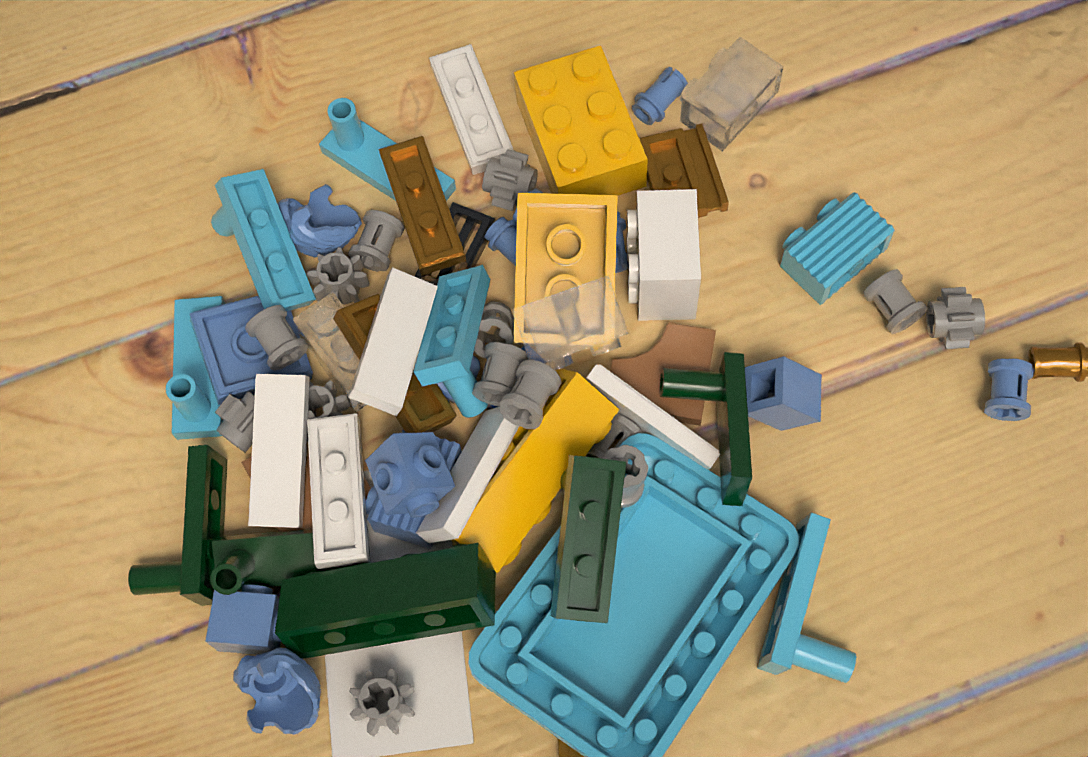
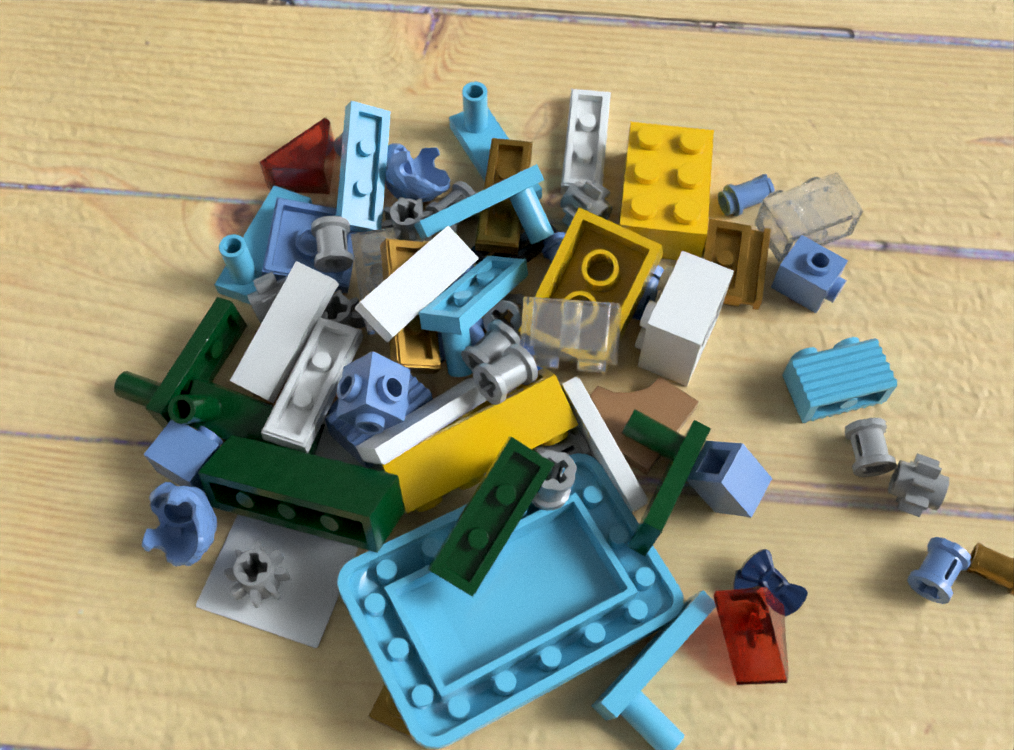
camera: 20 degrees right, 5 degrees down
(193, 262) = (303, 162): none -> clear red slope
(433, 196) = (516, 188): none -> medium azure piece
(762, 153) = (810, 274): none -> medium blue brick
(875, 531) = (754, 634): none -> clear red slope
(882, 481) = (760, 571): none -> dark blue piece

